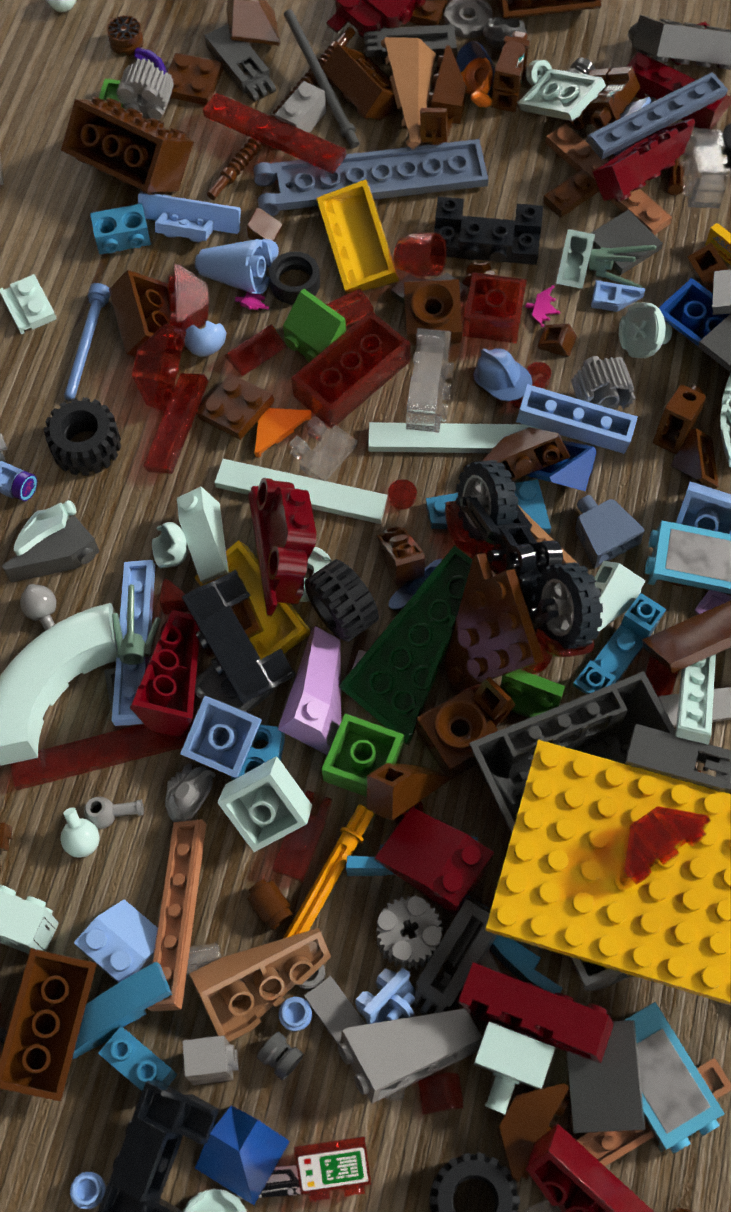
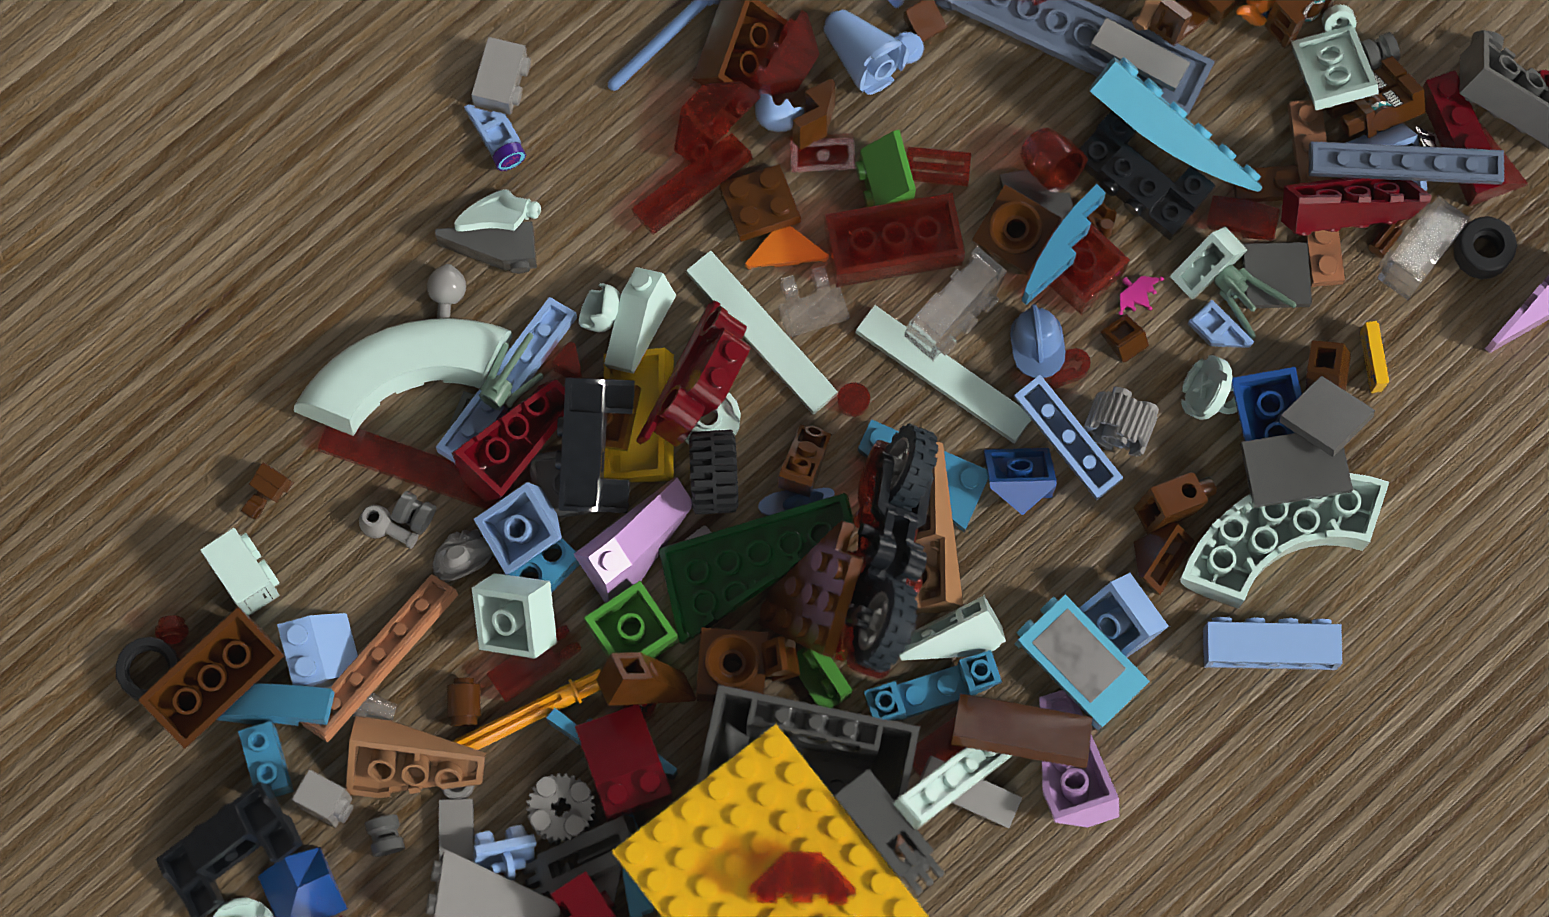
camera: 30 degrees right, 10 degrees up
(77, 418) = (594, 117): black tyre -> none
(79, 835) = (343, 531): light aqua piece -> none
(87, 1190) = (162, 833): light blue plate -> none
(126, 784) = (413, 512): none -> dark grey wheel
(234, 324) = (817, 117): none -> reddish brown slope
(252, 301) = (854, 97): dark pink piece -> none
(293, 261) = (920, 76): black tyre -> none
(295, 1014) = (421, 810): light blue plate -> none
(357, 238) = (1006, 96): yellow slope -> none
(428, 160) = (1150, 59): none -> light grey tile
(476, 296) = (1058, 252): none -> dark azure slope
(484, 183) = (1165, 124): none -> medium azure wedge
(528, 451) = (987, 438): reddish brown slope -> none
(580, 215) = (1243, 216): none -> clear red slope
(606, 530) = (1014, 565): sand blue torso -> none

